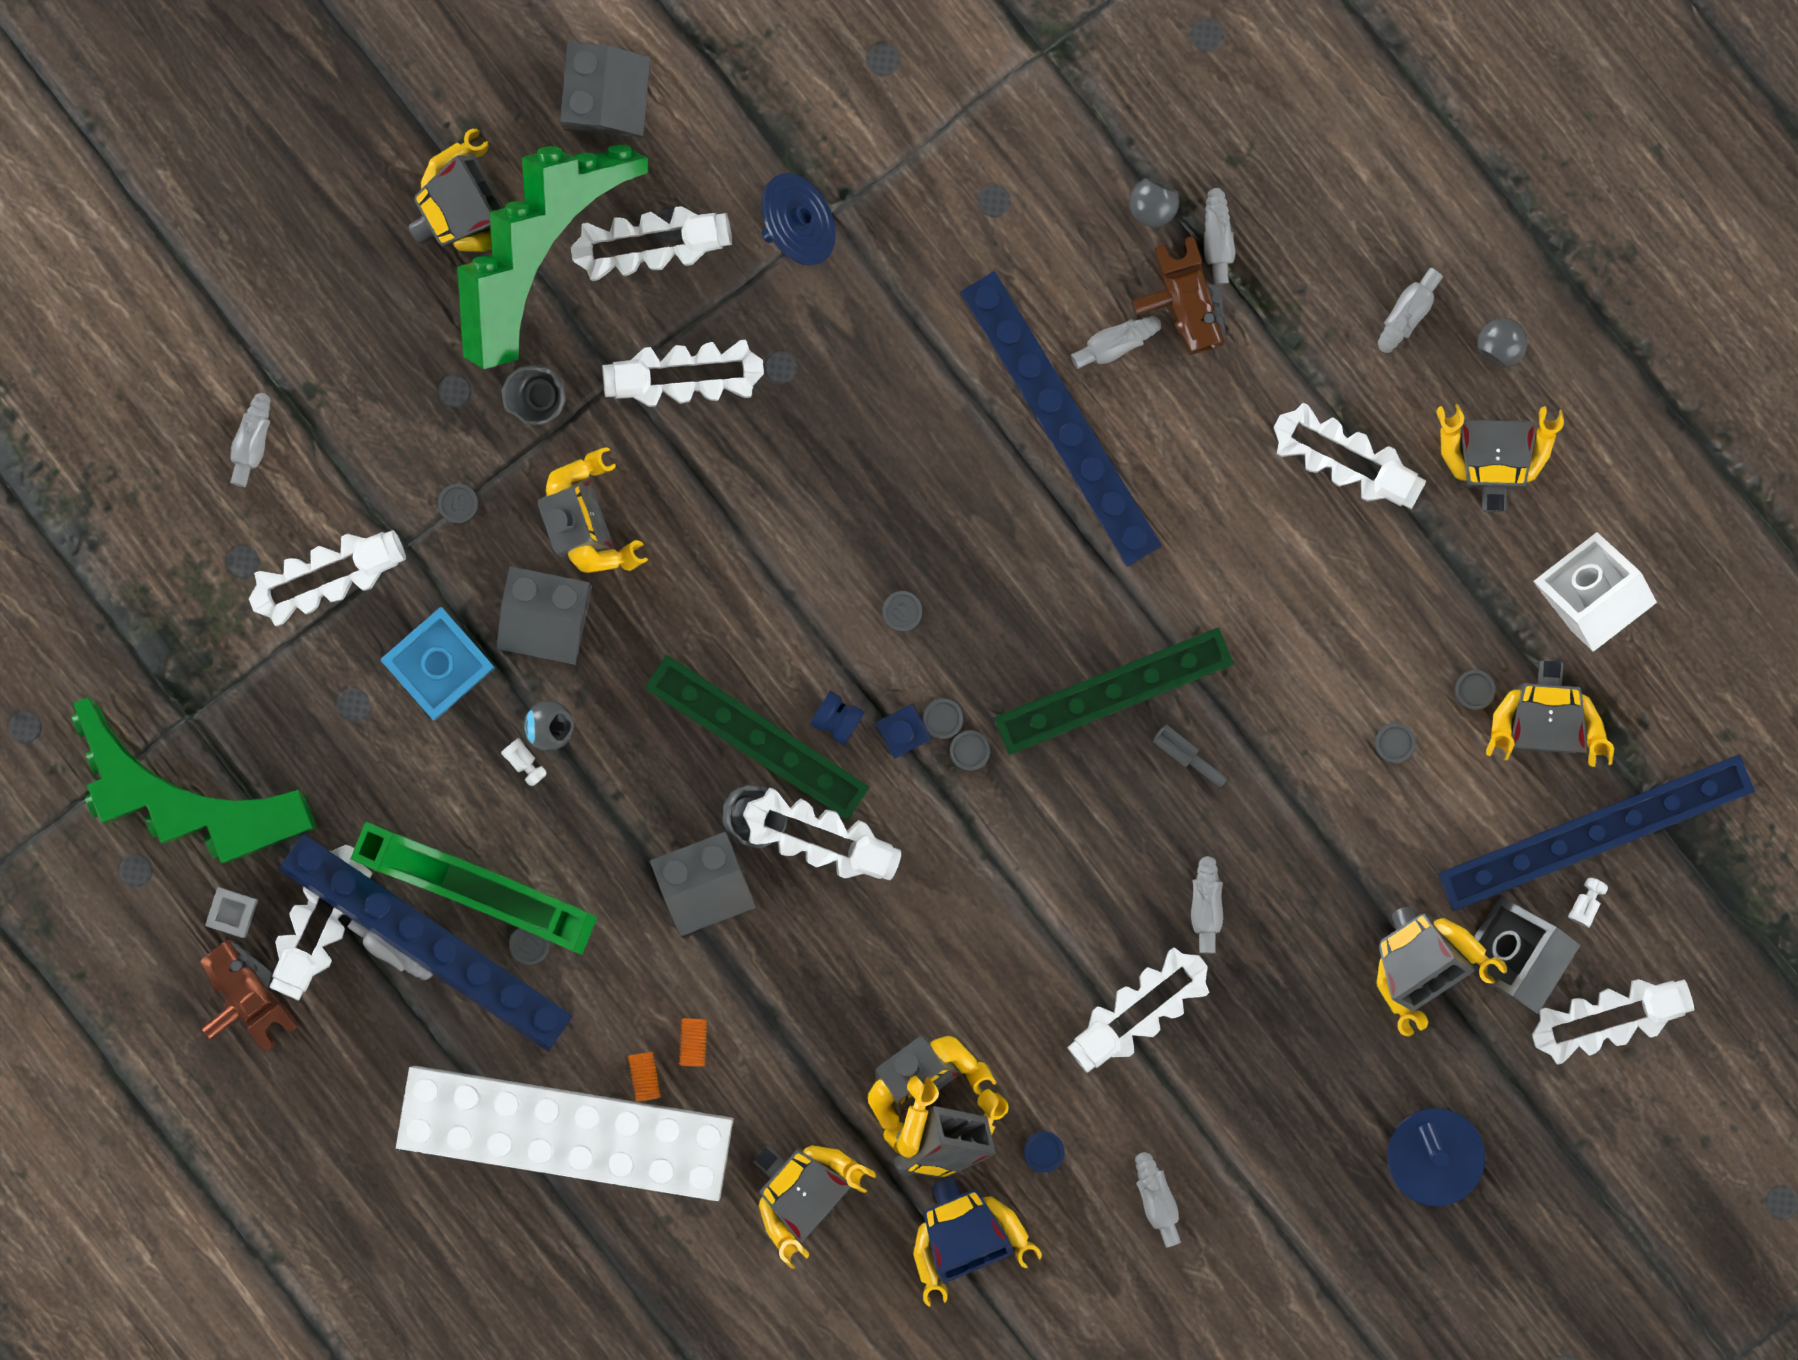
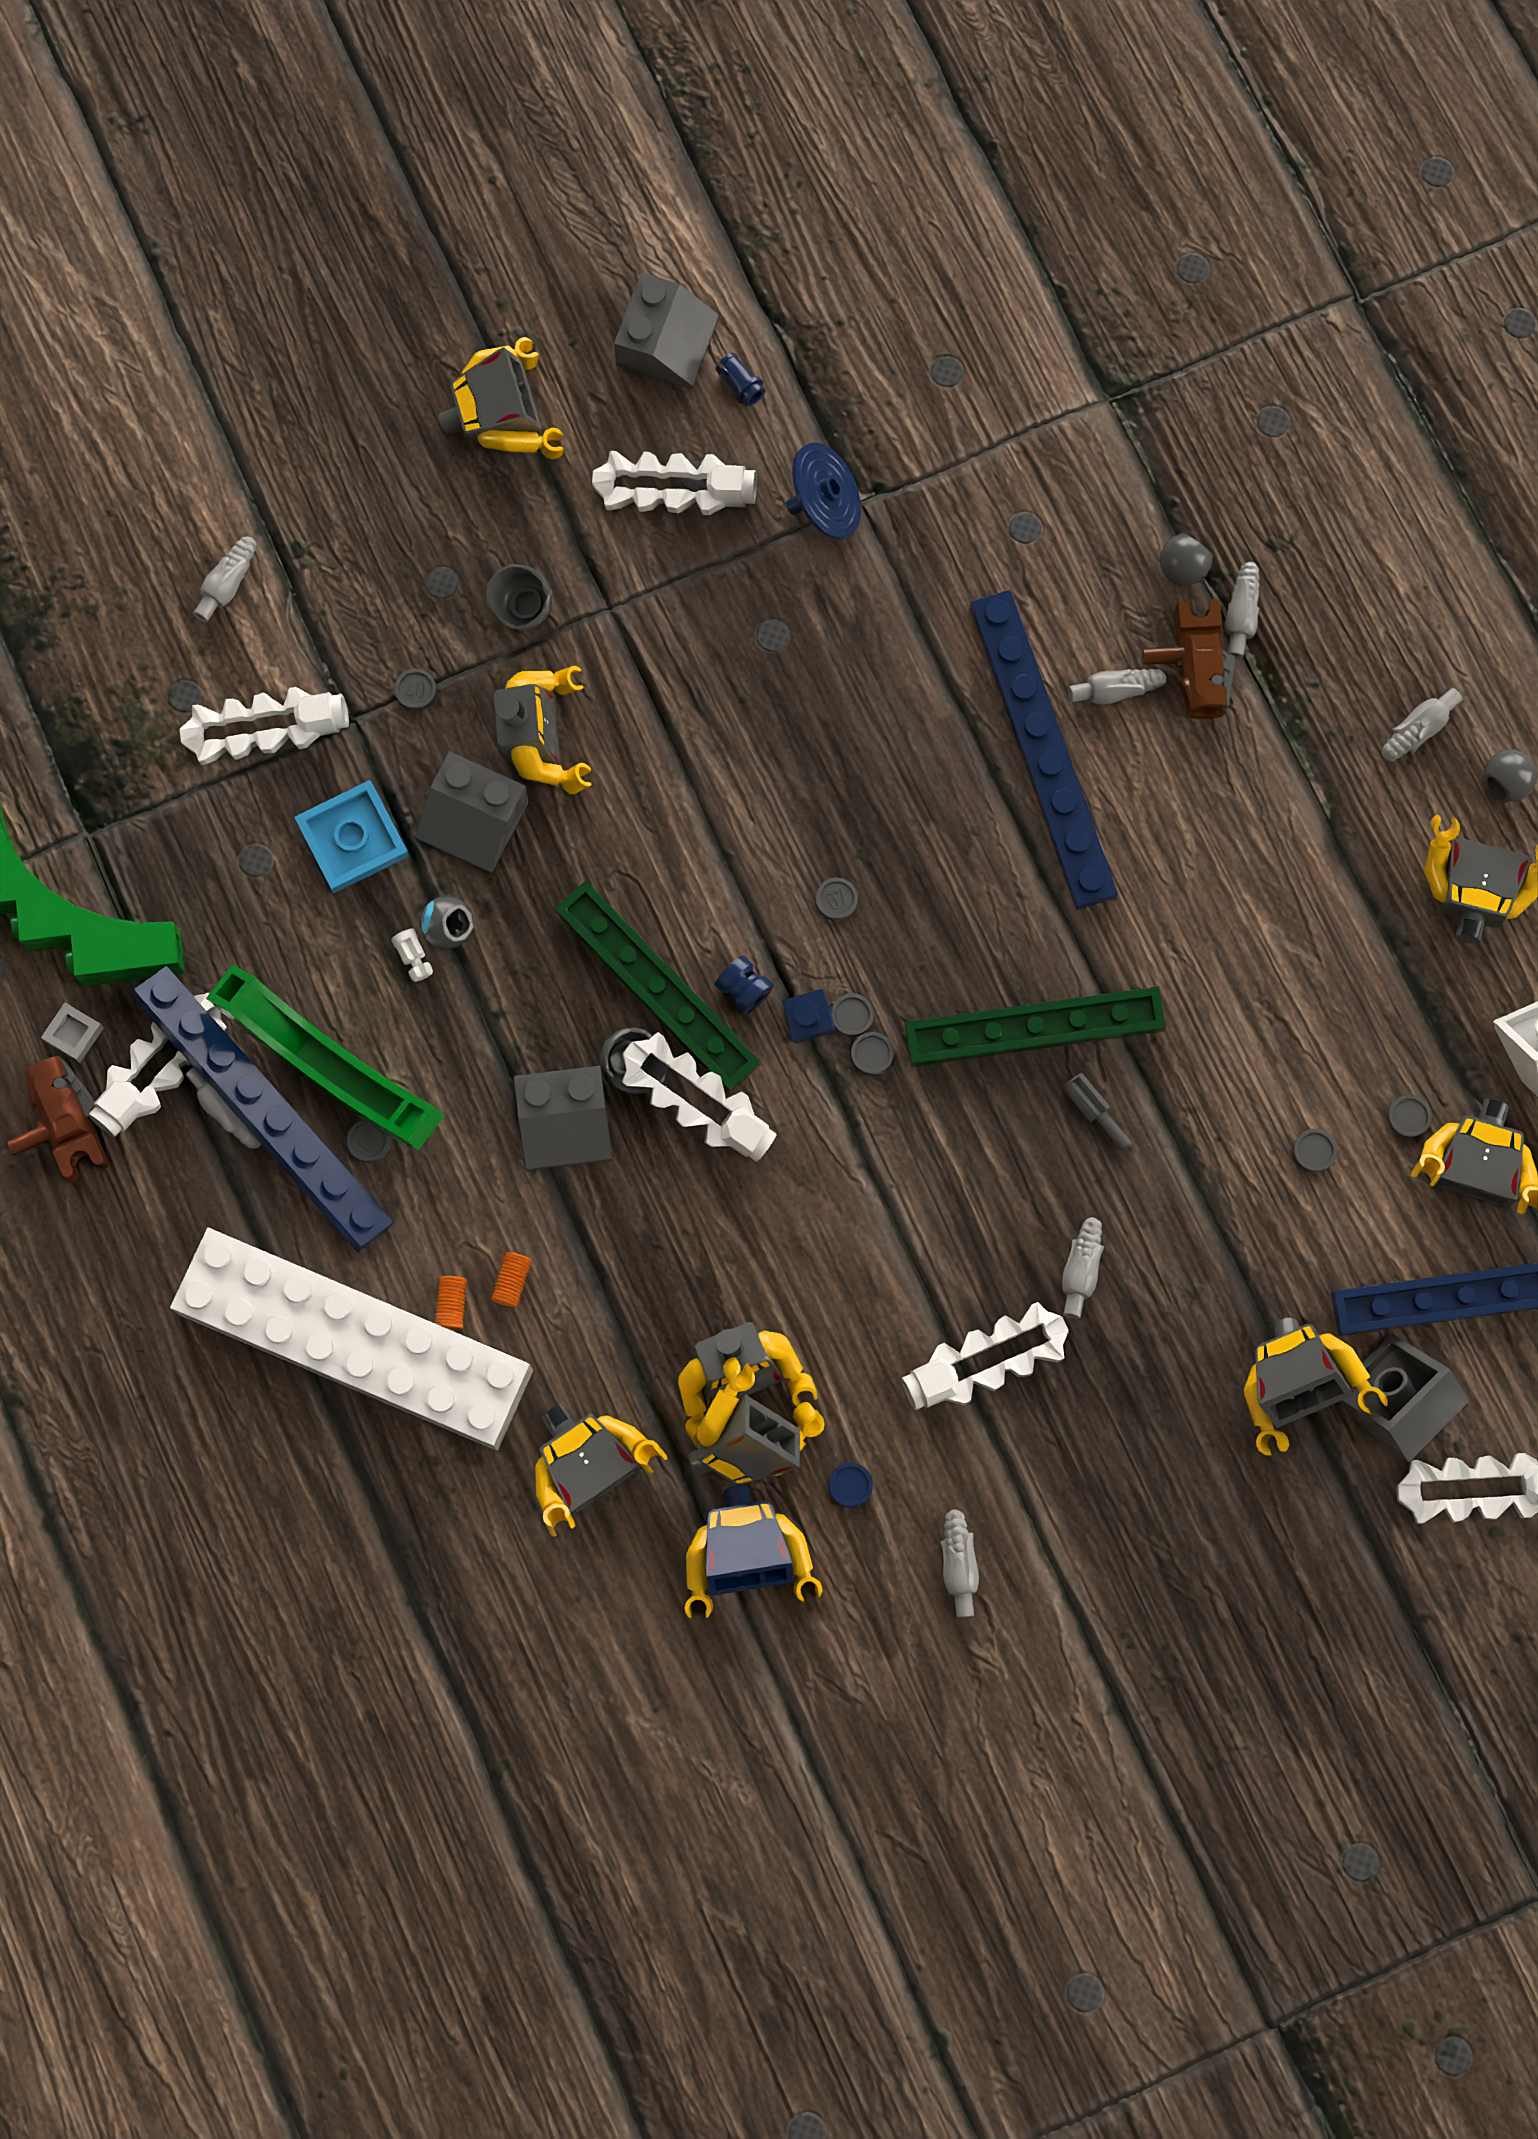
camera: 10 degrees right, 10 degrees down
(521, 234) = (510, 478): arch -> none
(633, 378) = (621, 606): white sword -> none
(688, 120) = (746, 386): none -> dark blue pin
(1393, 480) = (1368, 886): white sword -> none
(1436, 1157) = (1267, 1591): dark blue shield -> none
(1587, 905) = (1483, 1363): white piece -> none

